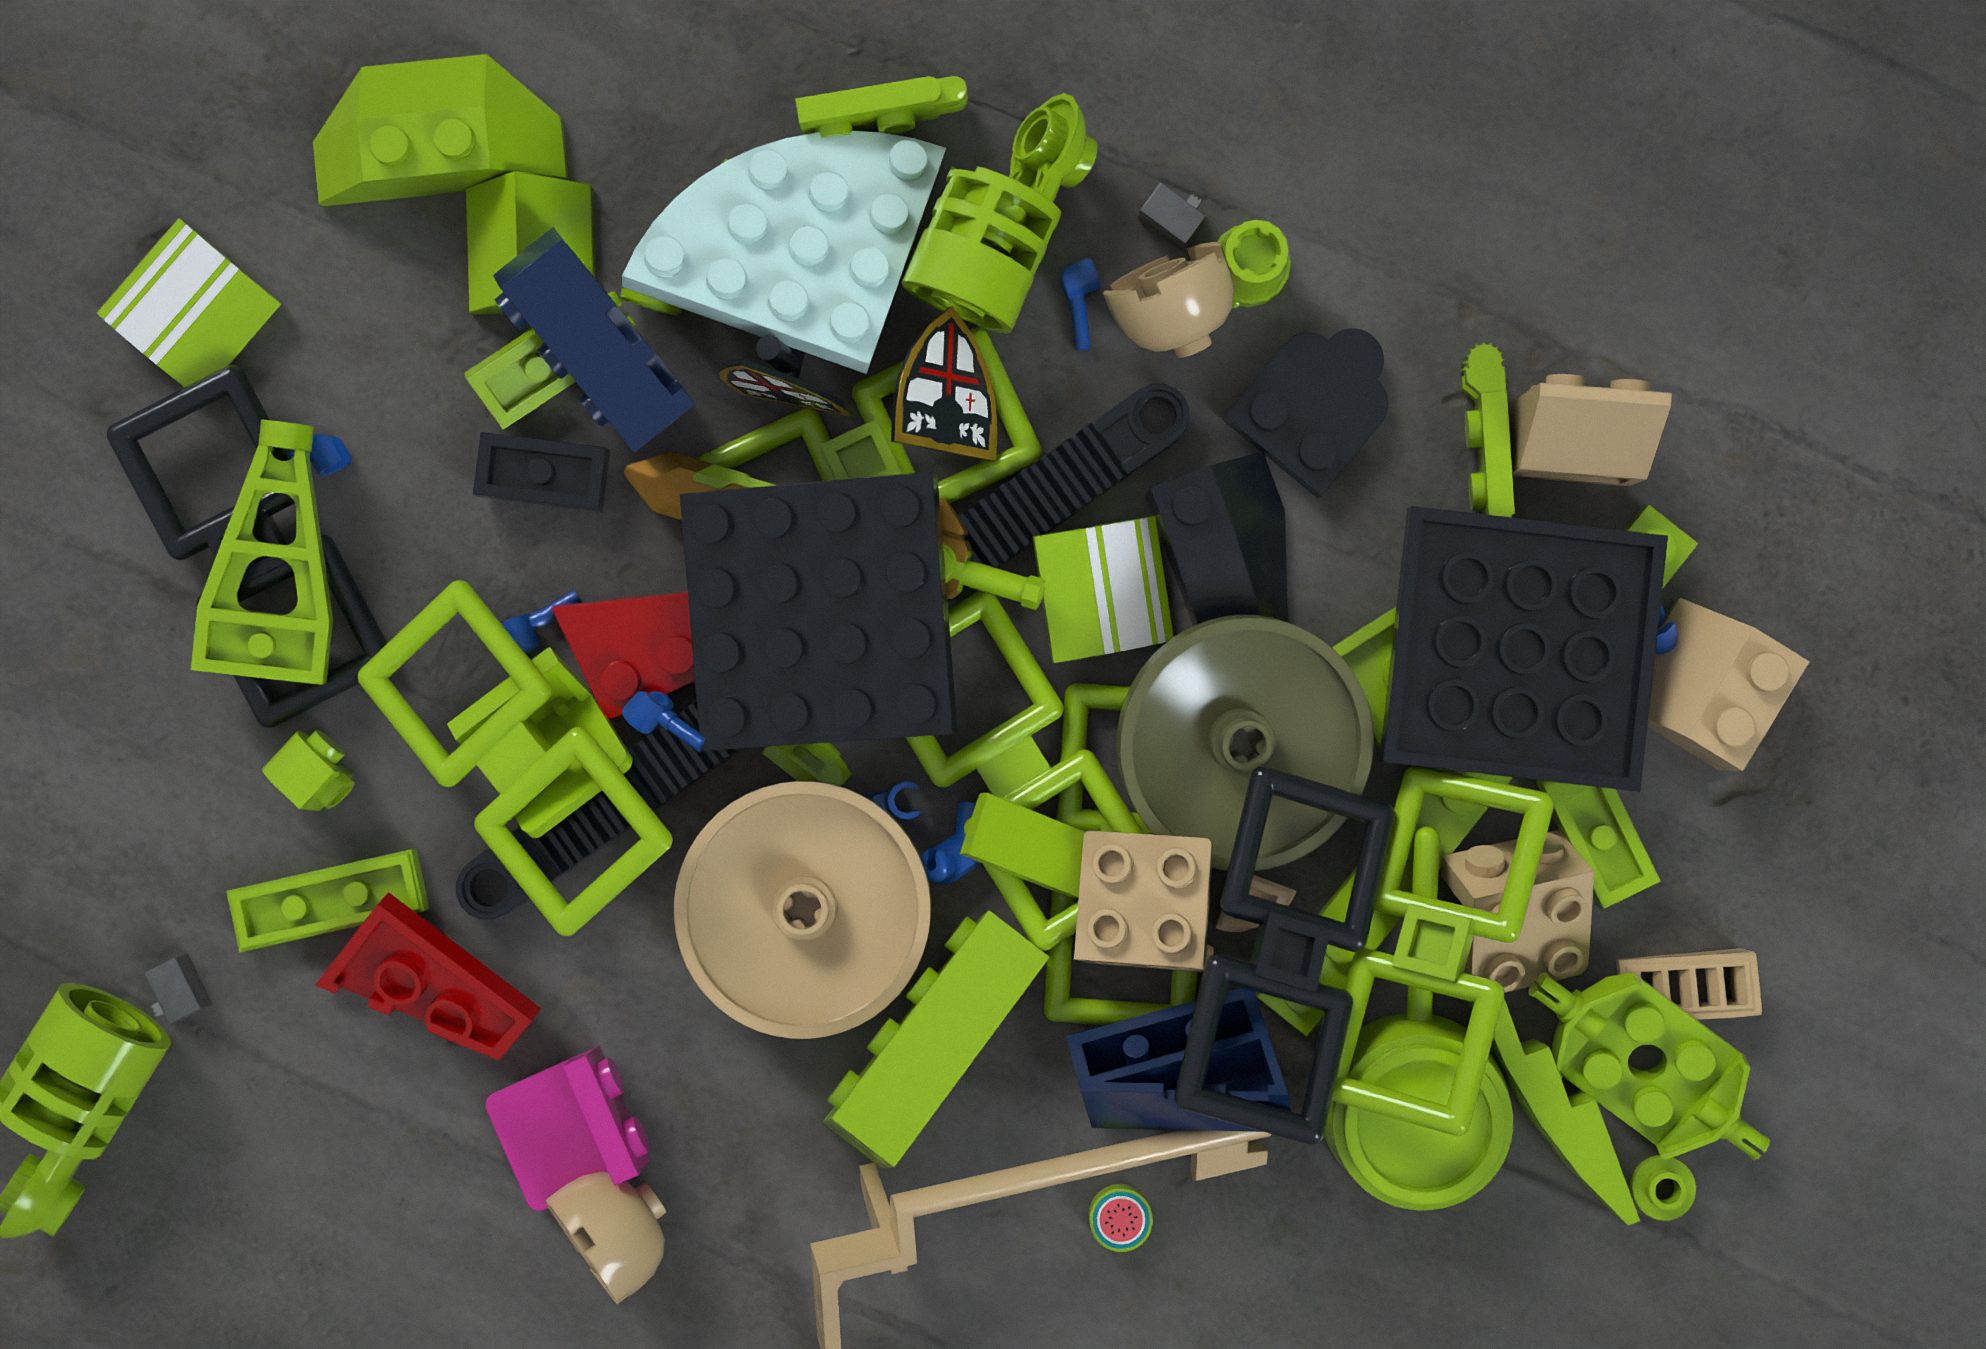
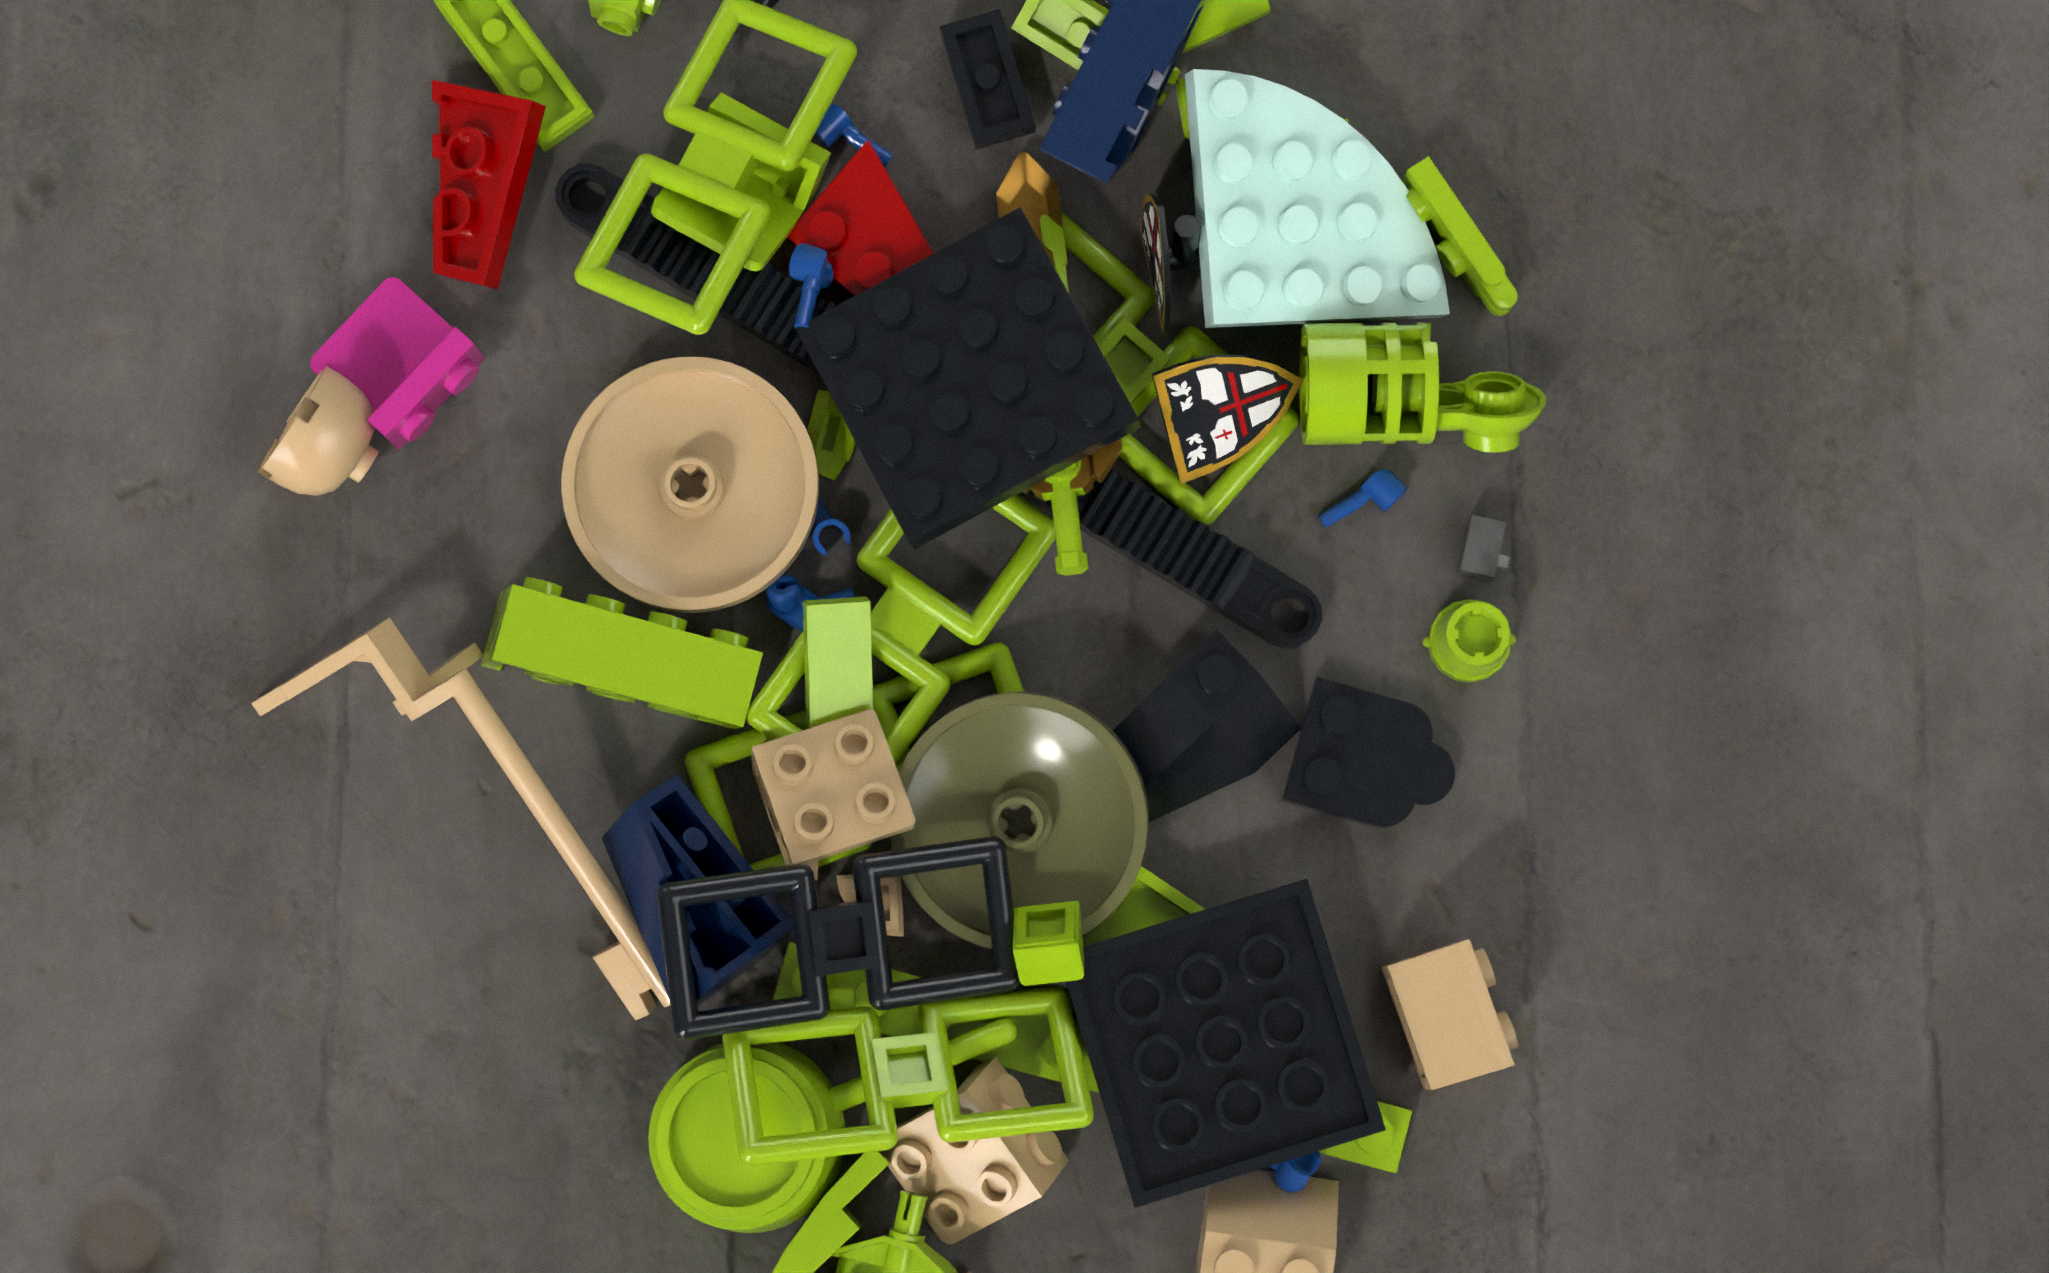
camera: 60 degrees right, 5 degrees down
(1103, 589) = (1106, 633): lime slope -> none
(1120, 1218) = (528, 905): tile -> none
(1174, 301) = (1400, 581): tan cylinder -> none
(1370, 765) = (1048, 943): none -> lime slope
(1488, 431) = (1411, 928): lime hinge -> none
(1605, 838) = (1076, 1201): lime hinge -> none

